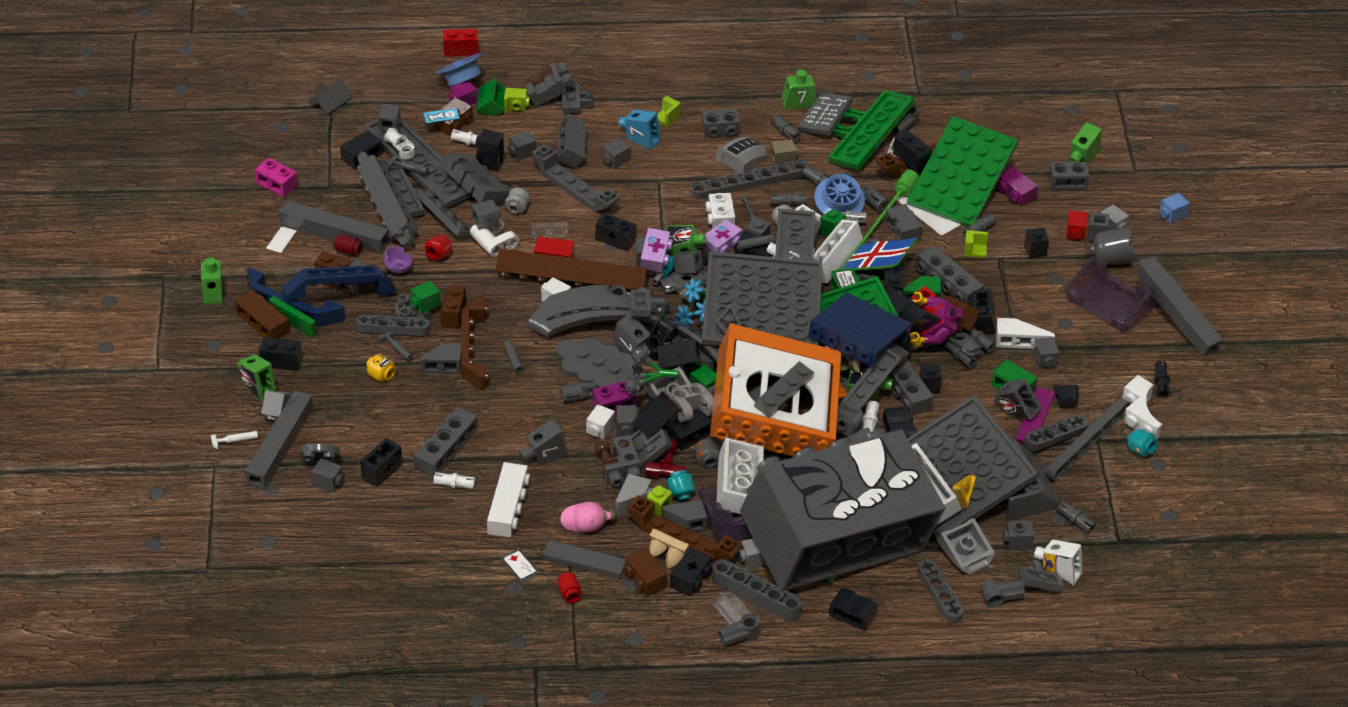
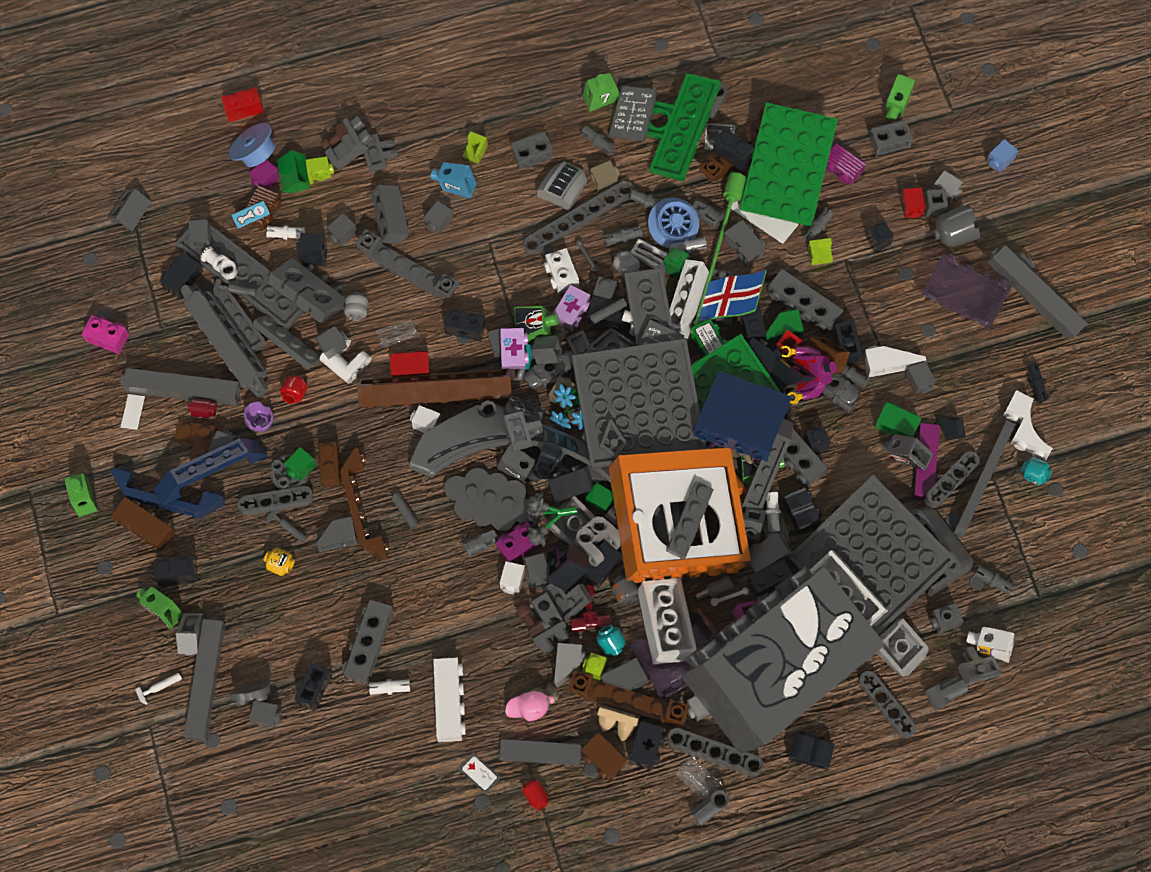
camera: 10 degrees left, 25 degrees up
(296, 318) = (174, 516): green tile -> none
(545, 444) = (473, 622): dark grey torso -> none
(964, 489) = (889, 587): yellow tile -> none

